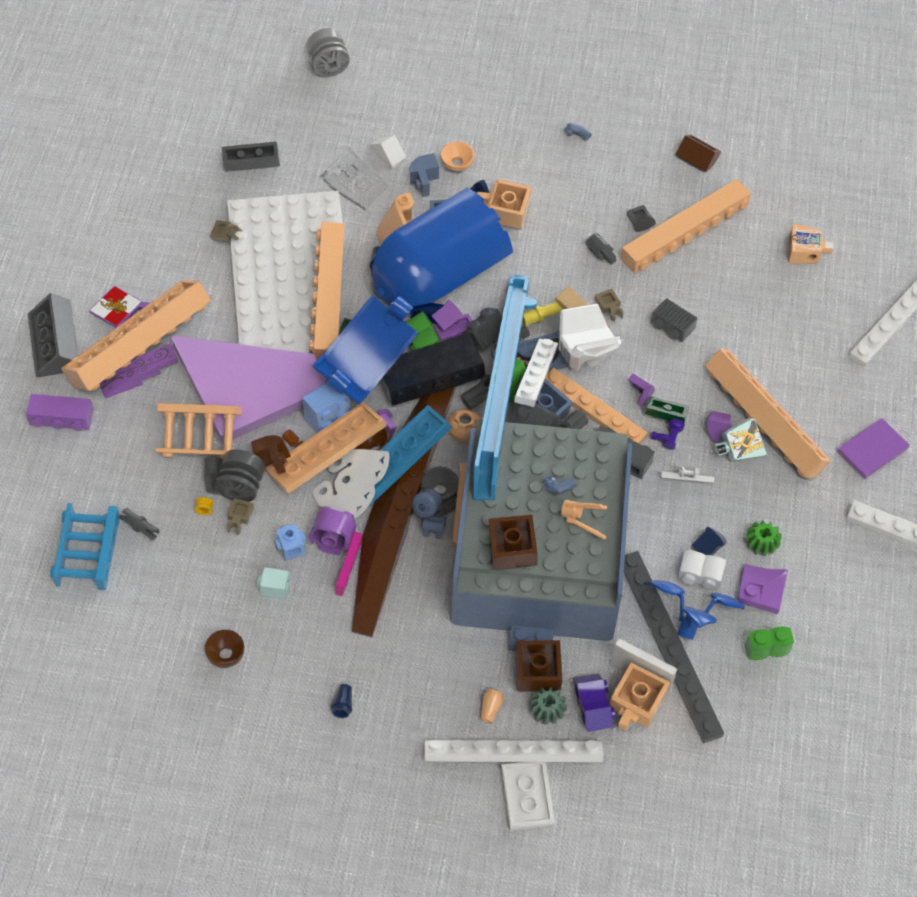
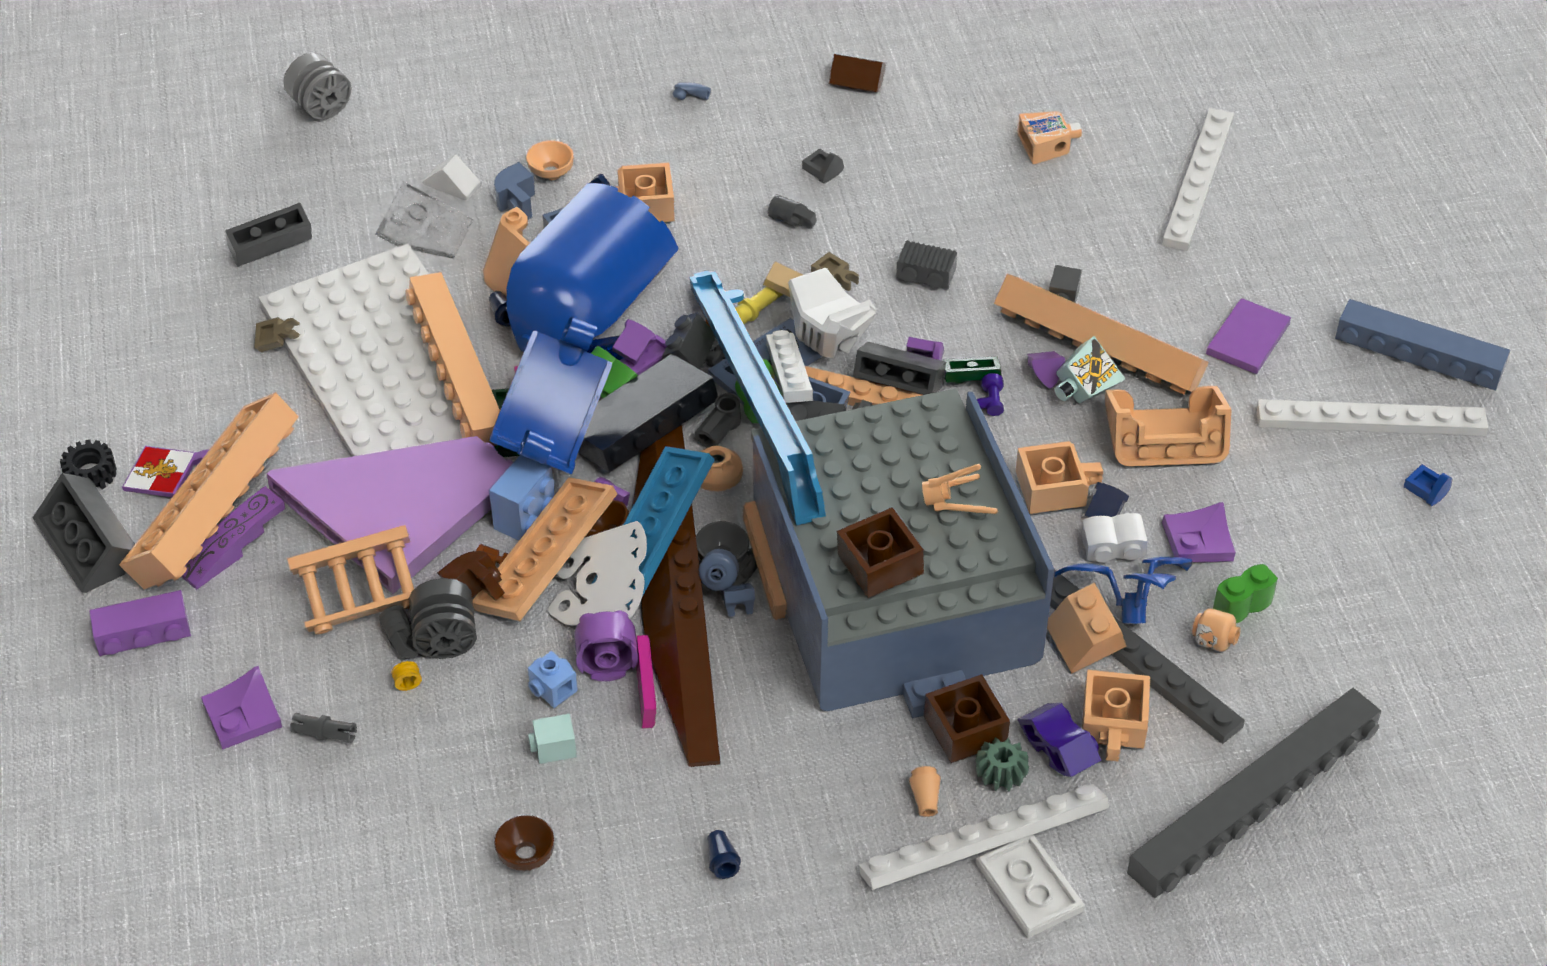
camera: 20 degrees left, 10 degrees down
(74, 280) = (88, 454): none -> black tyre
(96, 492) = (242, 709): none -> medium lavender plate
(102, 557) = (288, 785): dark azure fence -> none
(239, 513) = (461, 670): dark tan plate -> none
(557, 487) = (902, 474): sand blue arm -> none
(616, 394) = (899, 368): none -> dark grey brick
(626, 653) = (1077, 659): white tile -> none
(648, 628) = (1084, 629): none -> light nougat slope
(680, 472) = (1027, 434): white piece -> none
(683, 511) = (1055, 477): none -> light nougat hinge
(685, 226) = (884, 157): light nougat brick -> none
(705, 787) = (1253, 793): none -> dark grey brick
(736, 661) = (1215, 629): none -> light nougat head
(762, 367) = (1066, 282): none -> dark grey brick
(763, 537) = (1171, 476): bright green gear -> none
(786, 506) = (1170, 435): none -> light nougat windscreen

